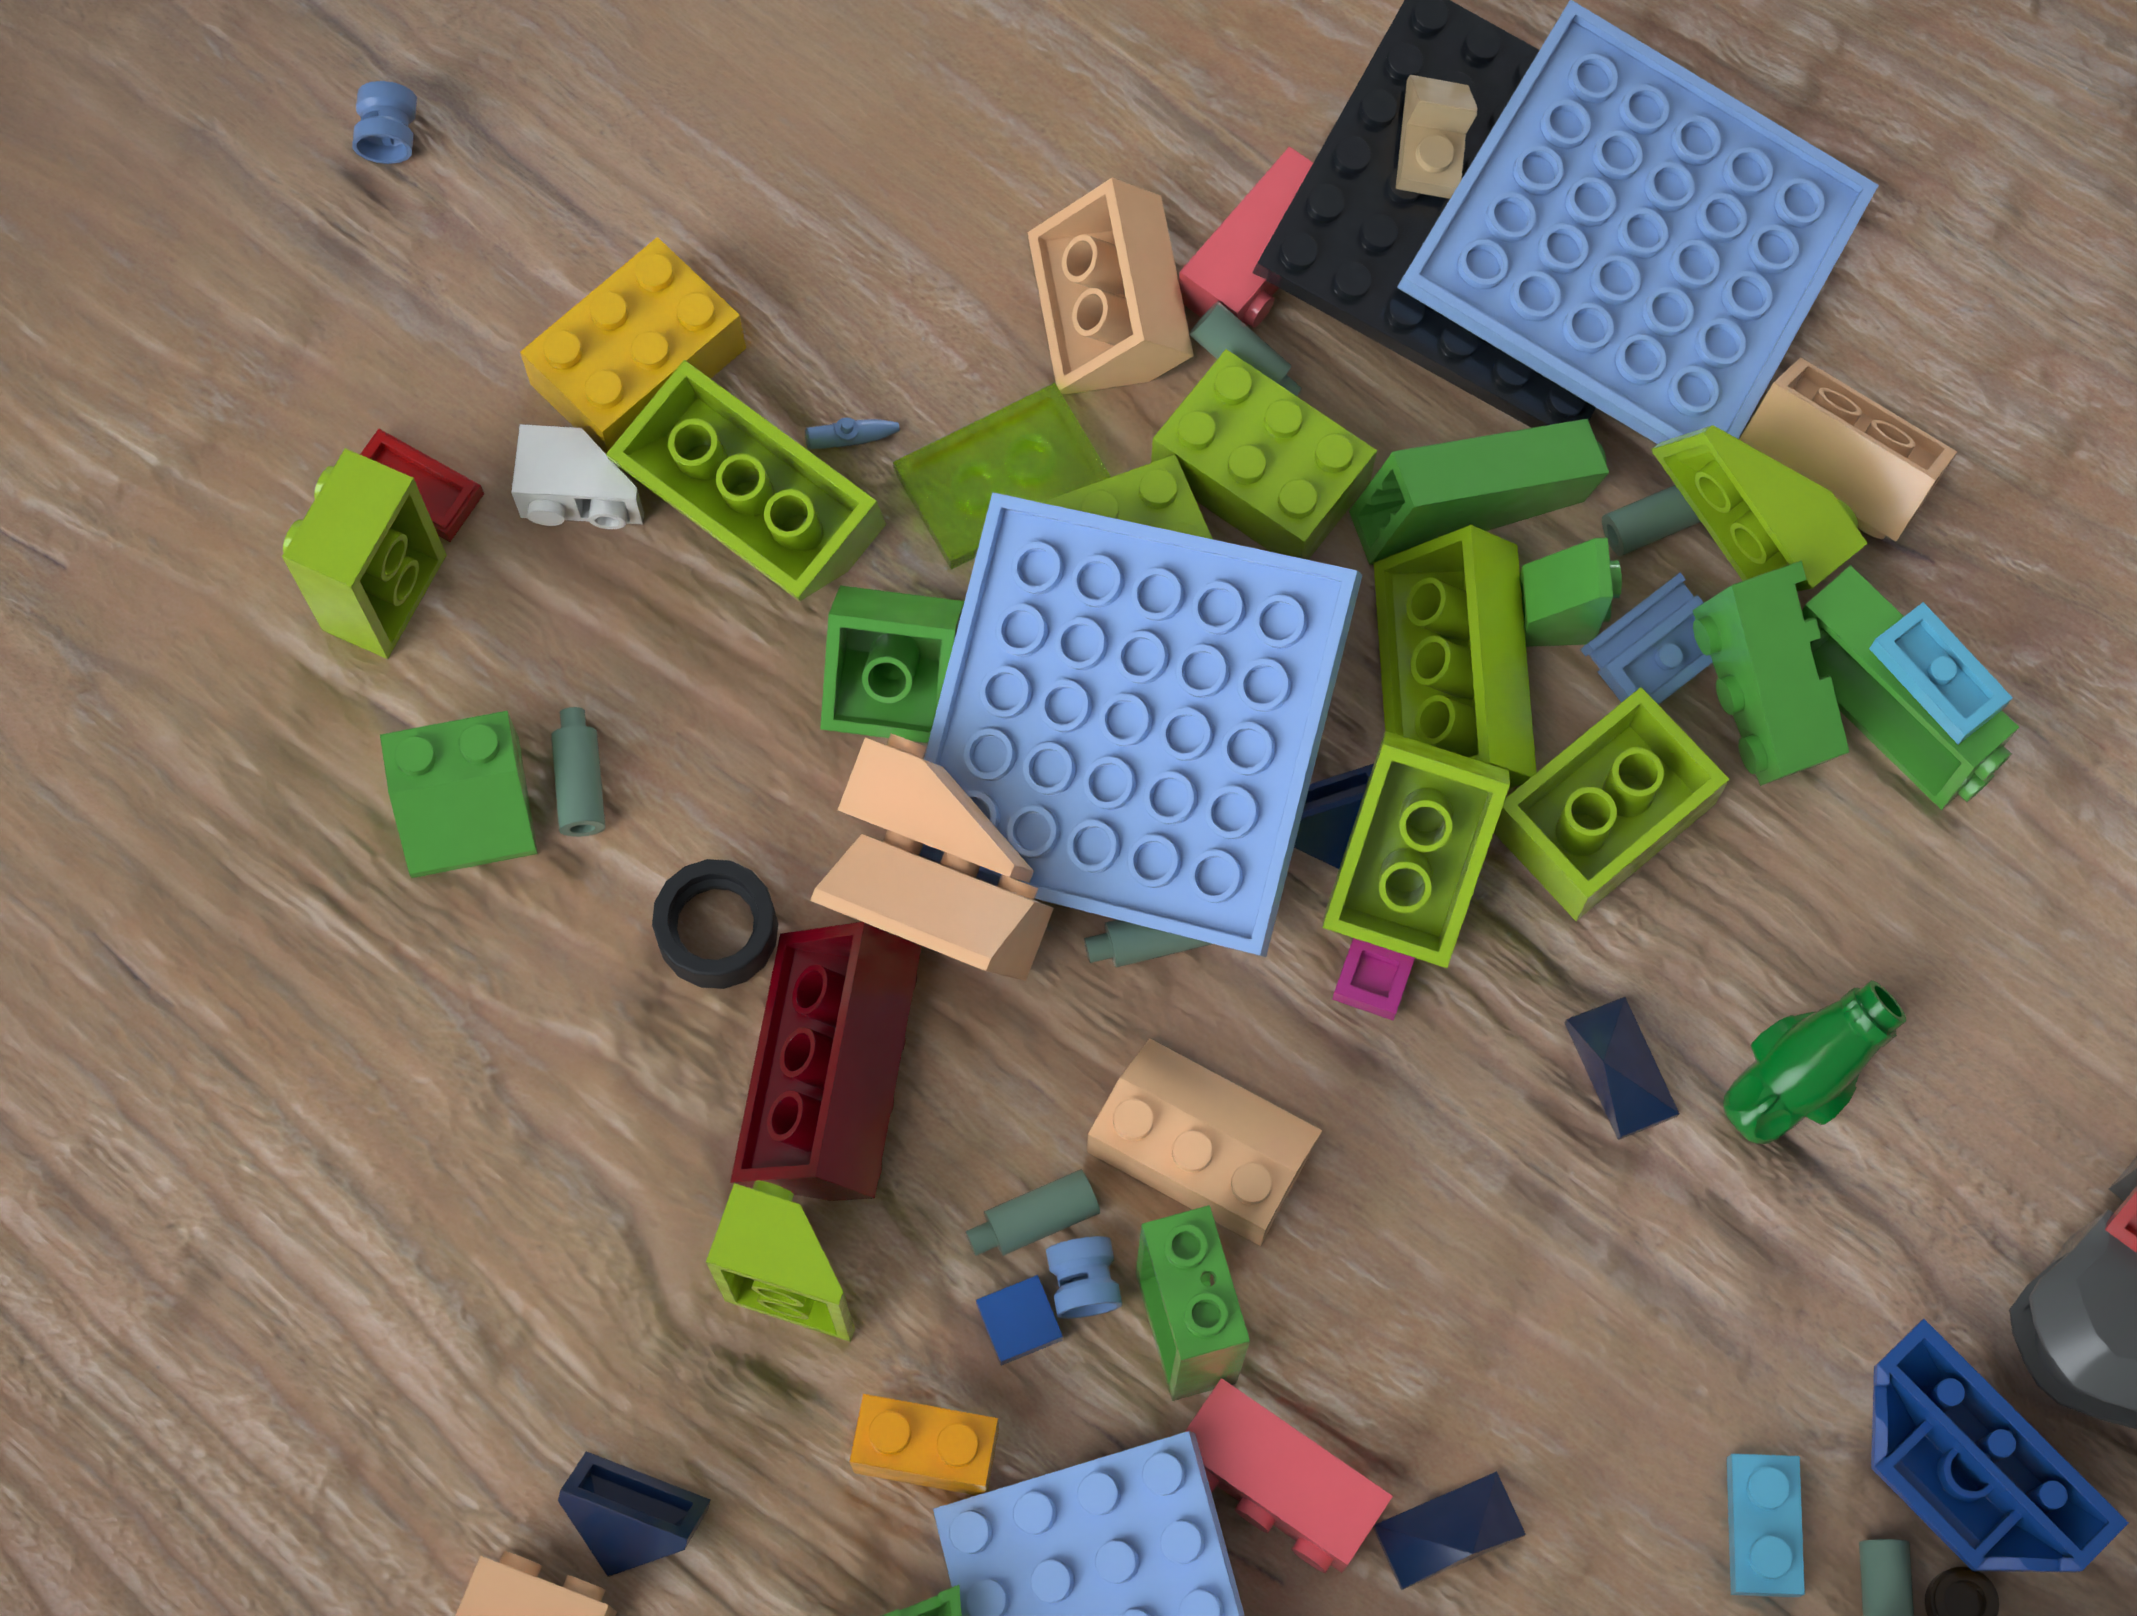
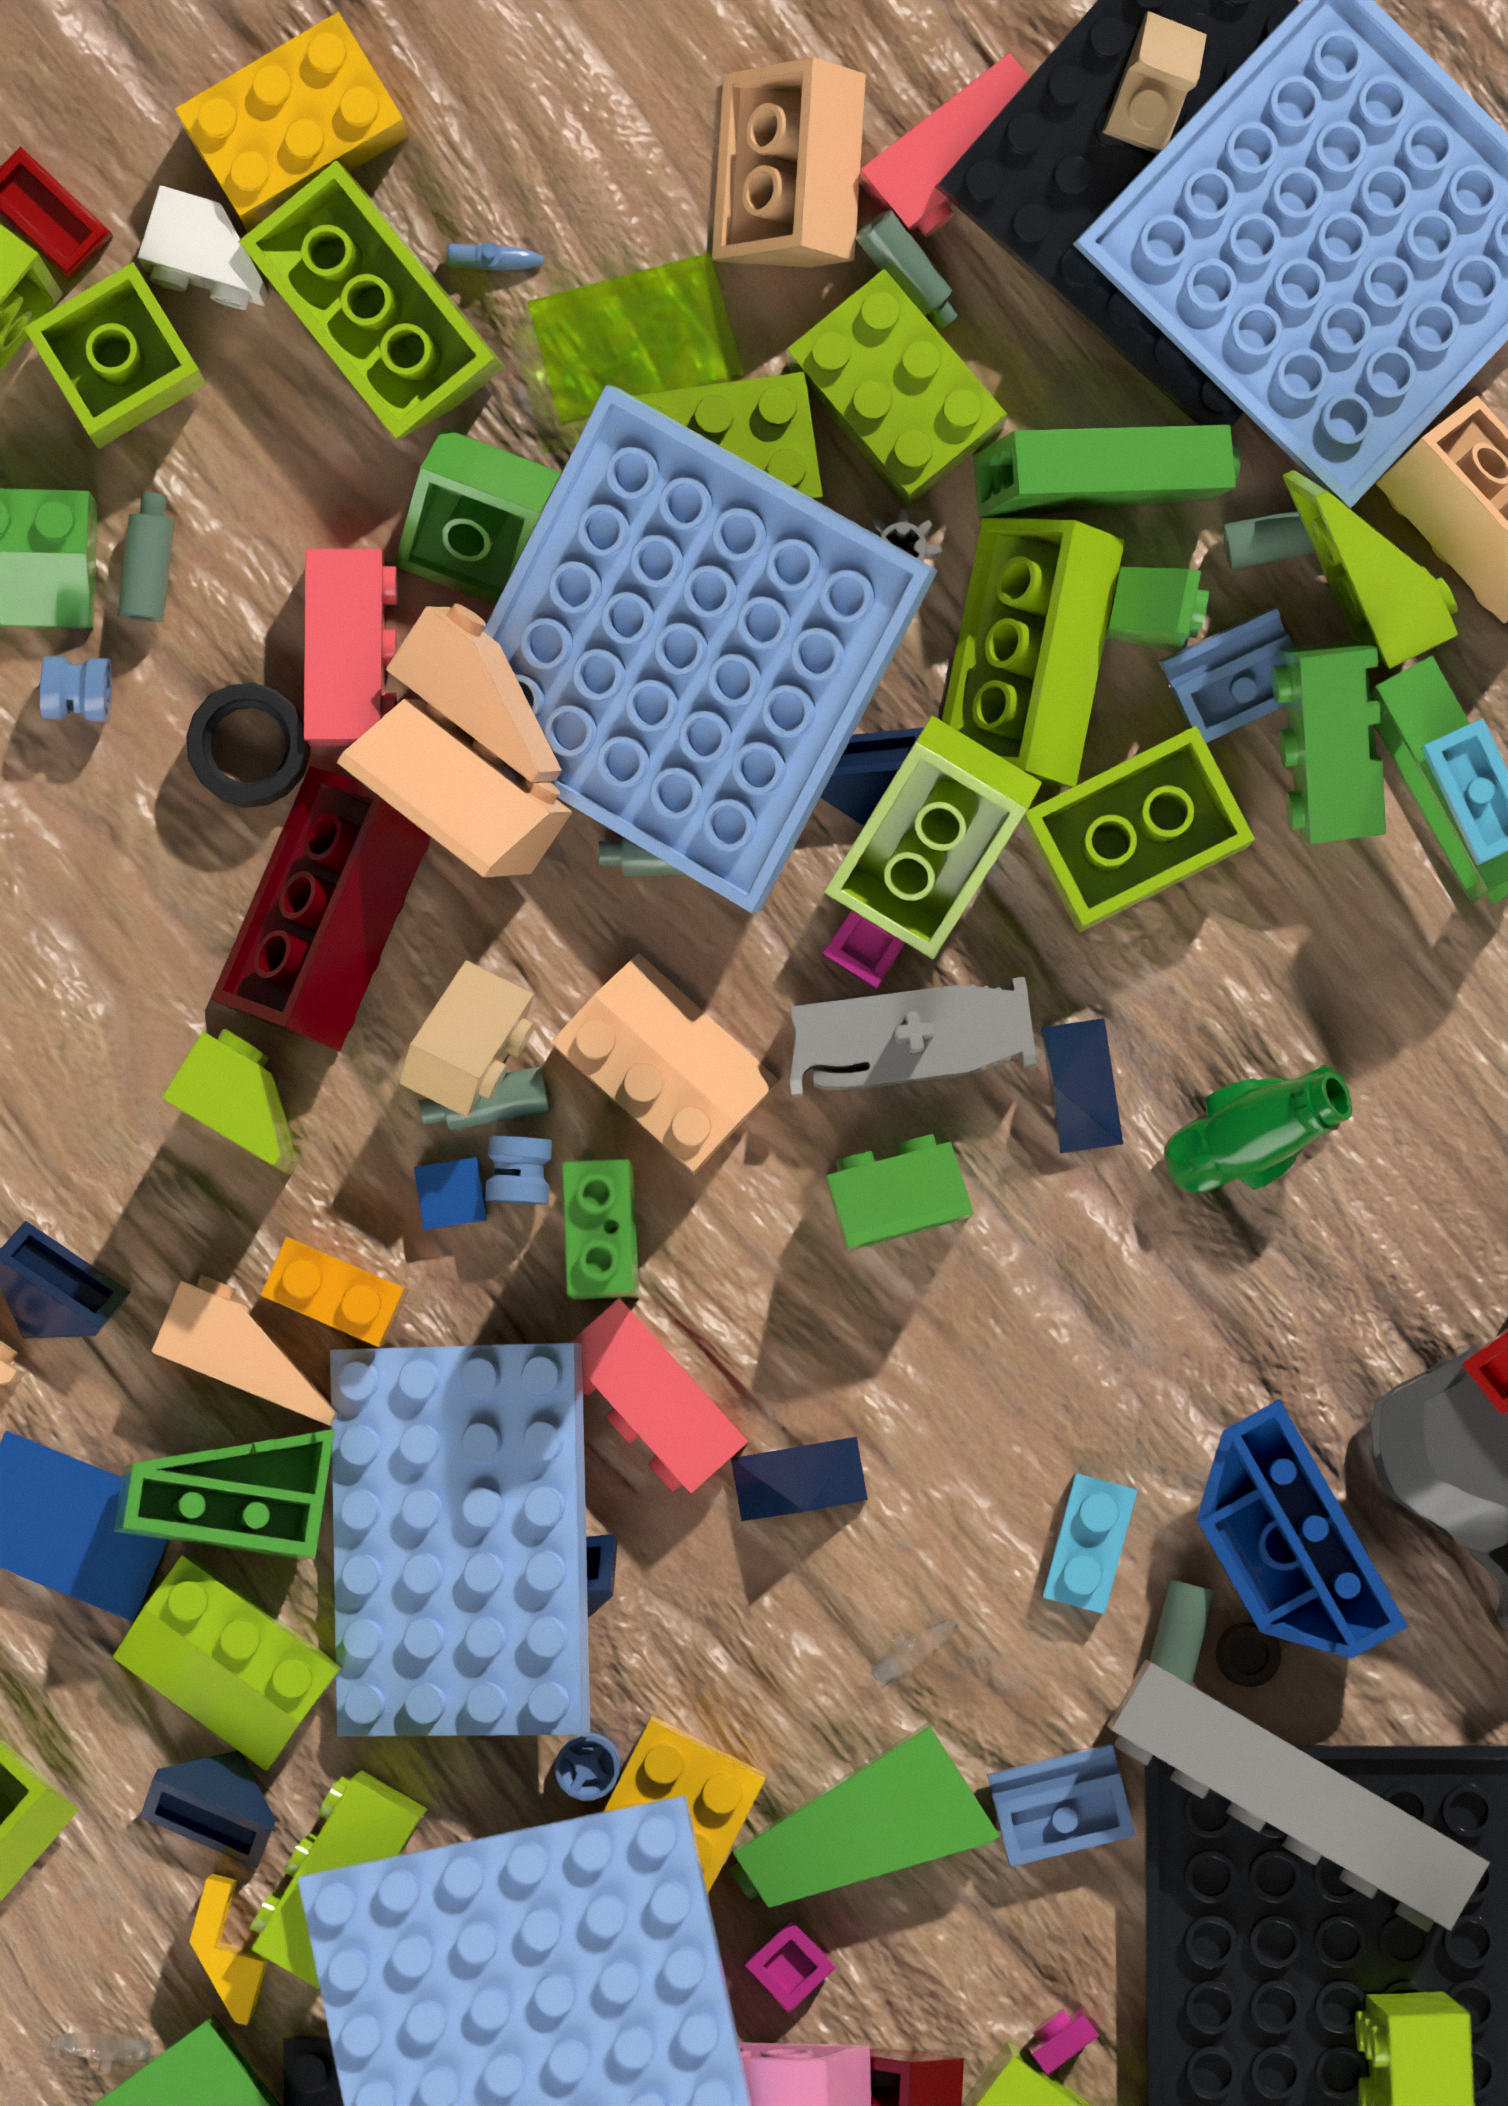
camera: 15 degrees right, 15 degrees up
(508, 587) = (115, 355): none -> lime brick
(531, 907) = (76, 688): none -> medium blue wheel
(791, 803) = (347, 643): none -> coral brick
(825, 1527) = (232, 1345): none -> light nougat slope
(1003, 1153) = (467, 1039): none -> tan brick
(1442, 1054) = (911, 1036): none -> light grey piece
(1475, 1211) = (898, 1193): none -> bright green slope

